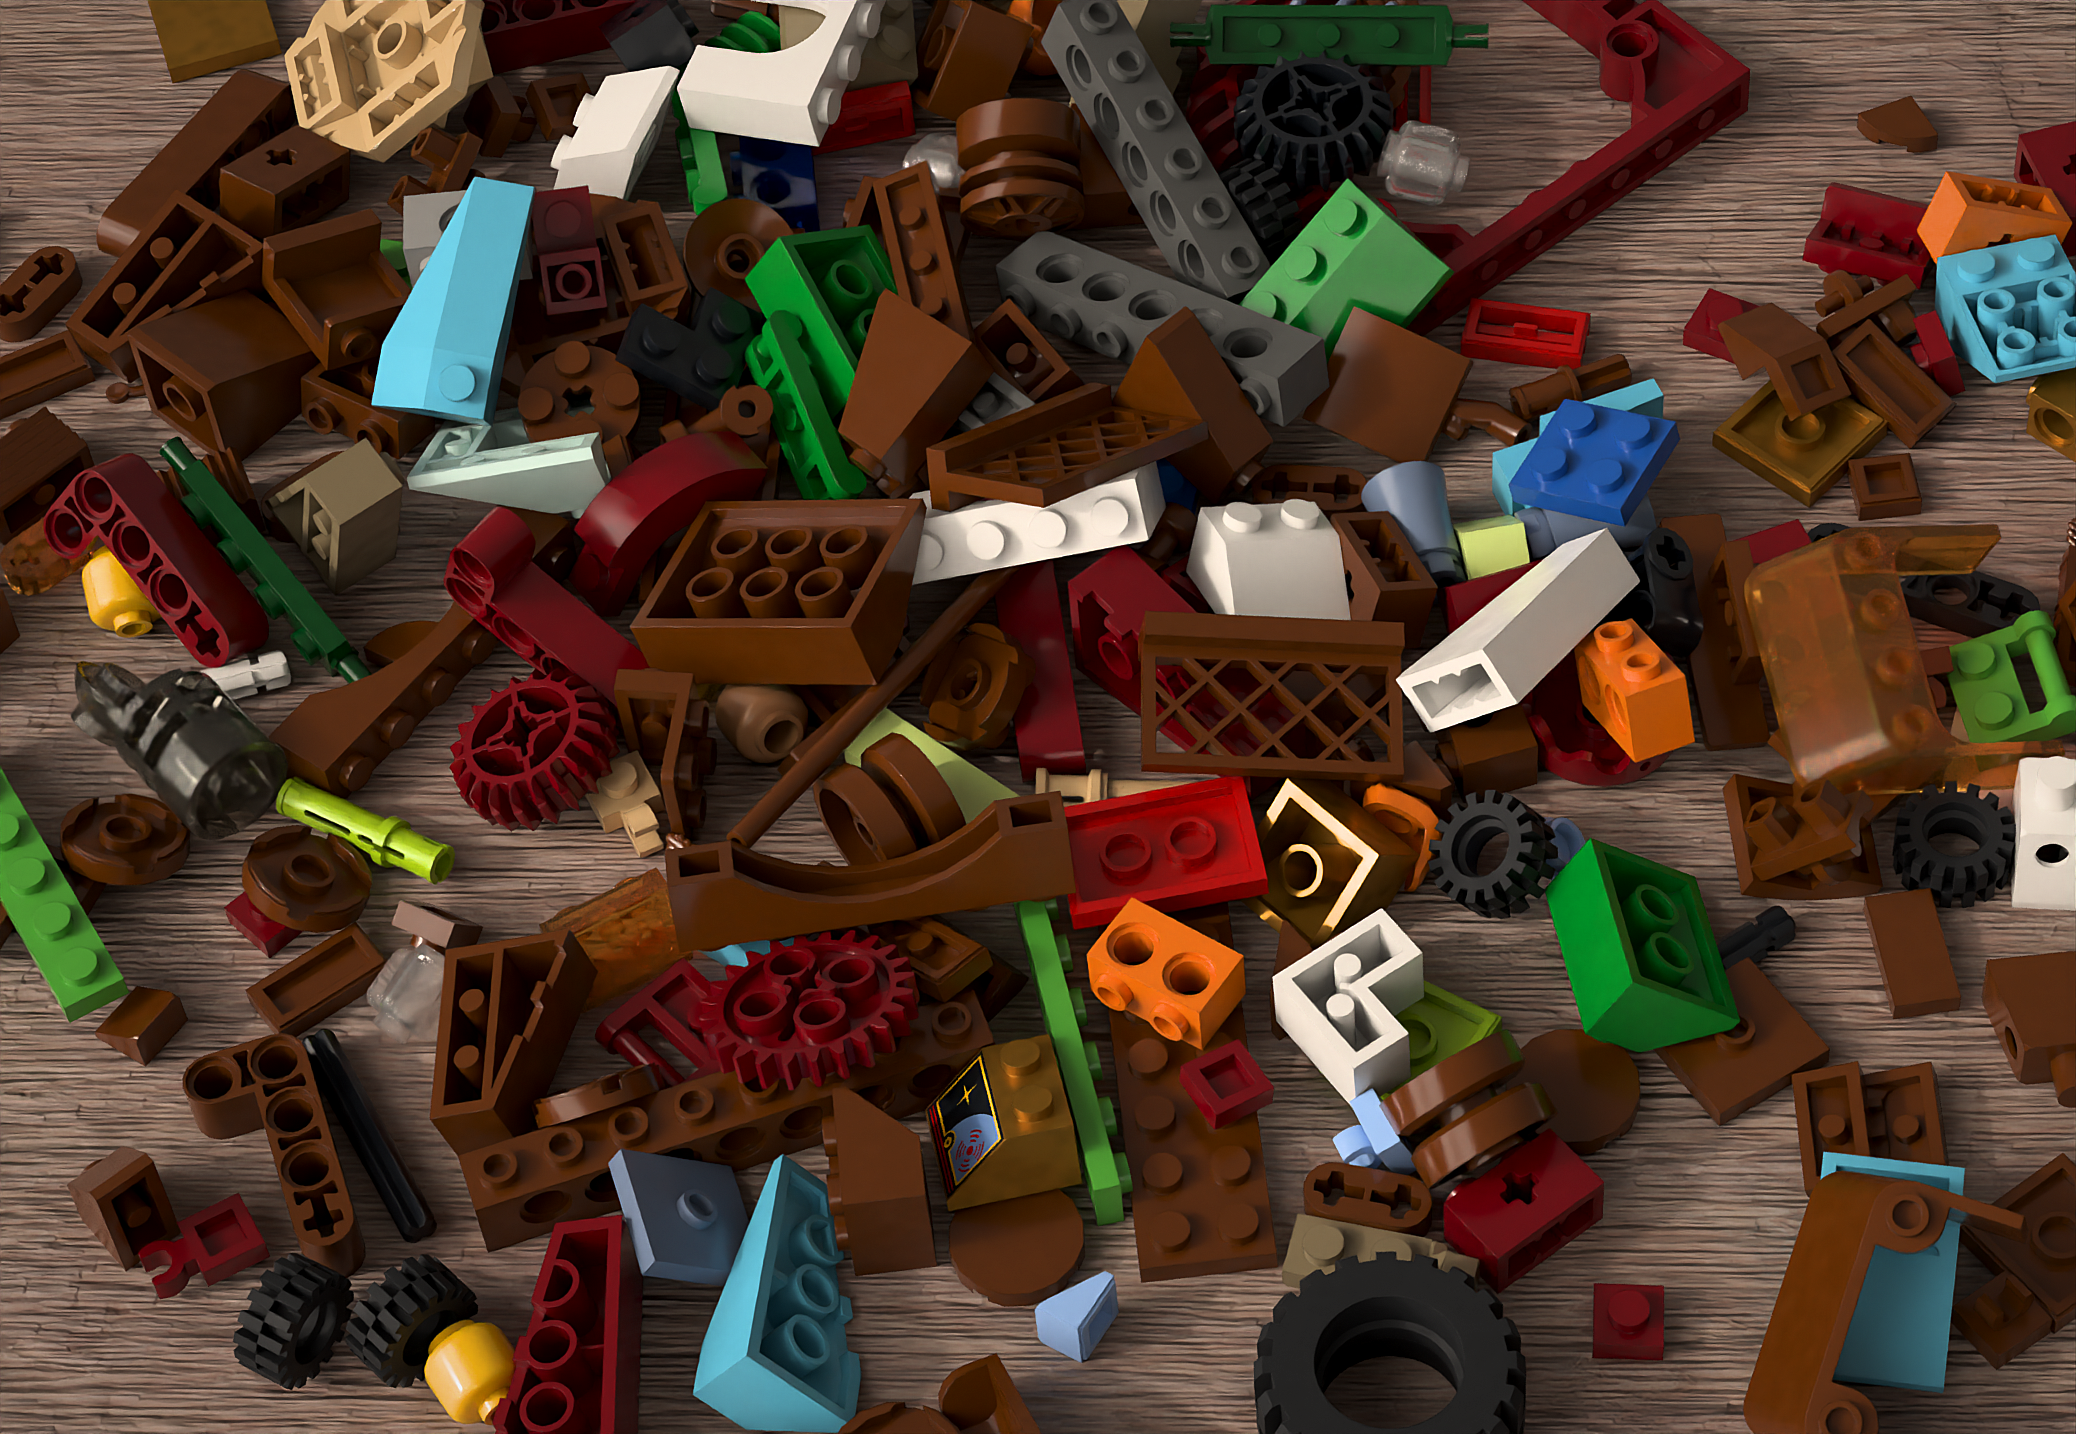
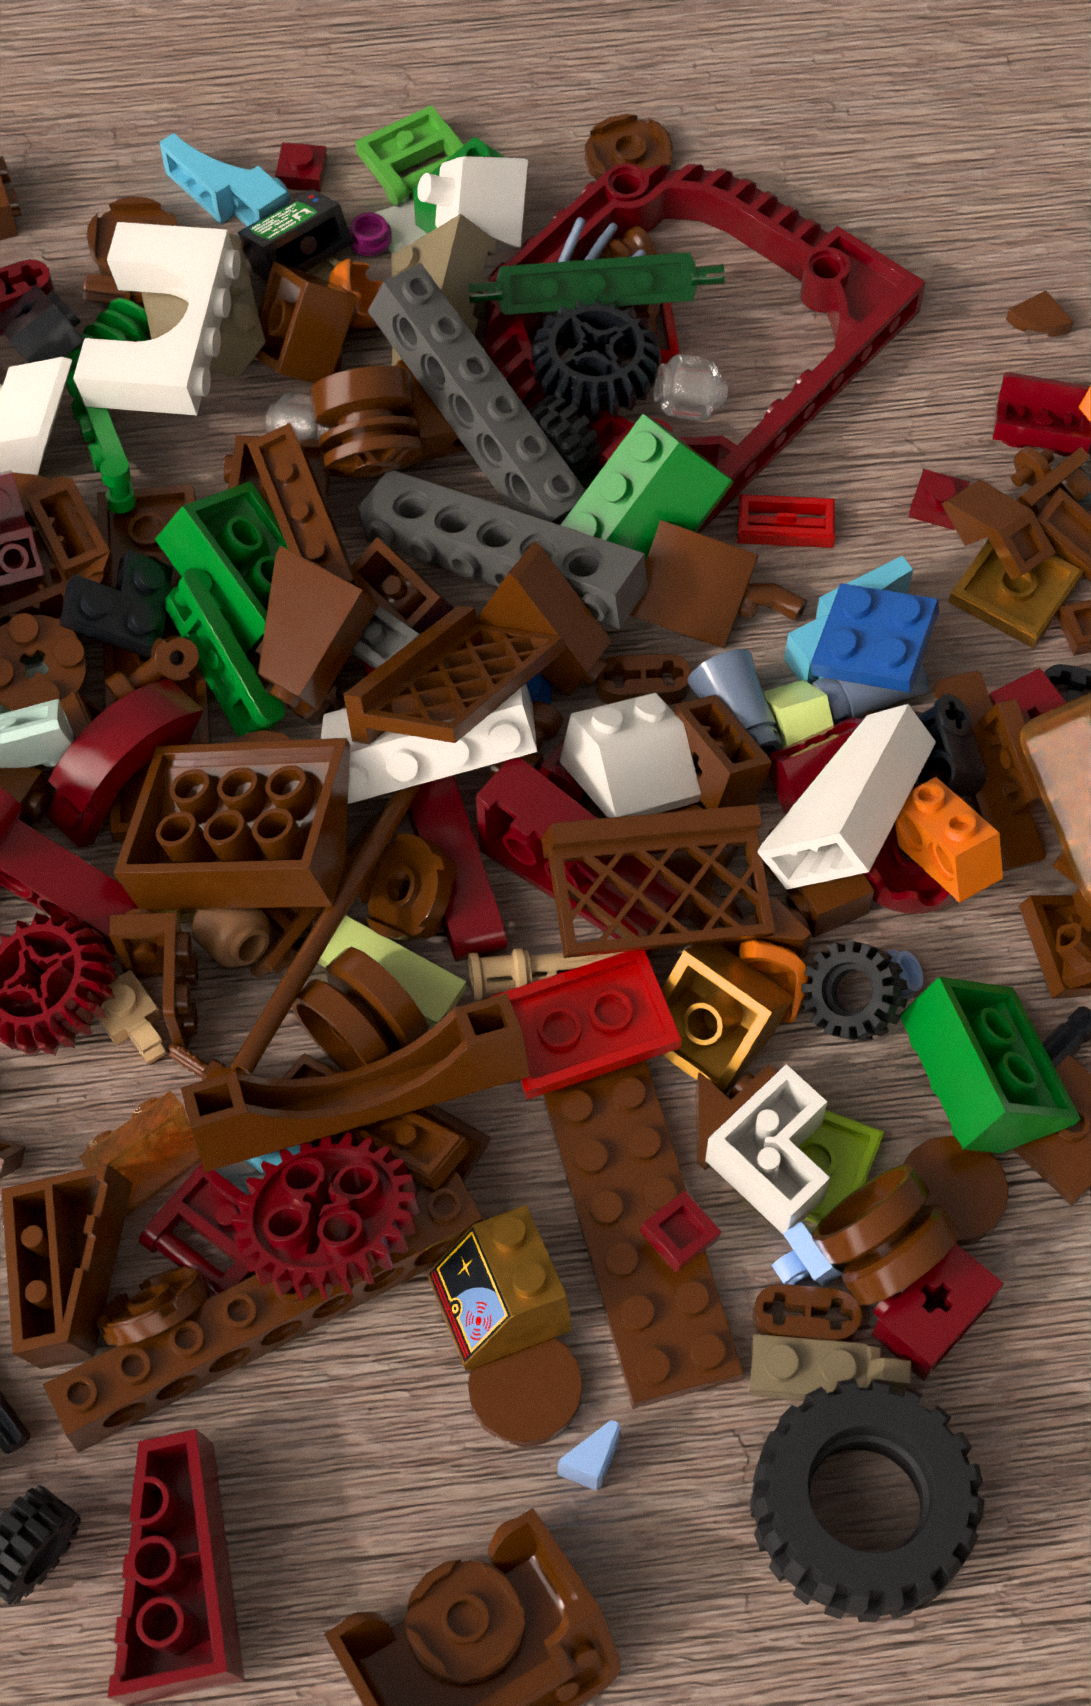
camera: 15 degrees left, 10 degrees up
(470, 1370) = (86, 1581): yellow head -> none
(680, 1215) = (247, 1413): sand blue plate -> none
(726, 229) = (140, 493): reddish brown dish -> none
(778, 177) = (164, 450): clear blue brick -> none
(779, 1330) = (340, 1505): medium azure wedge -> none
(870, 118) = (234, 378): red tile -> none
(877, 1188) = (413, 1368): reddish brown slope -> none
(1078, 1062) = (528, 1174): bright green plate -> none
(1173, 963) = (620, 1123): orange brick -> none
(1576, 384) = (831, 565): reddish brown axle -> none
(1628, 1321) = (1036, 1396): dark red plate -> none

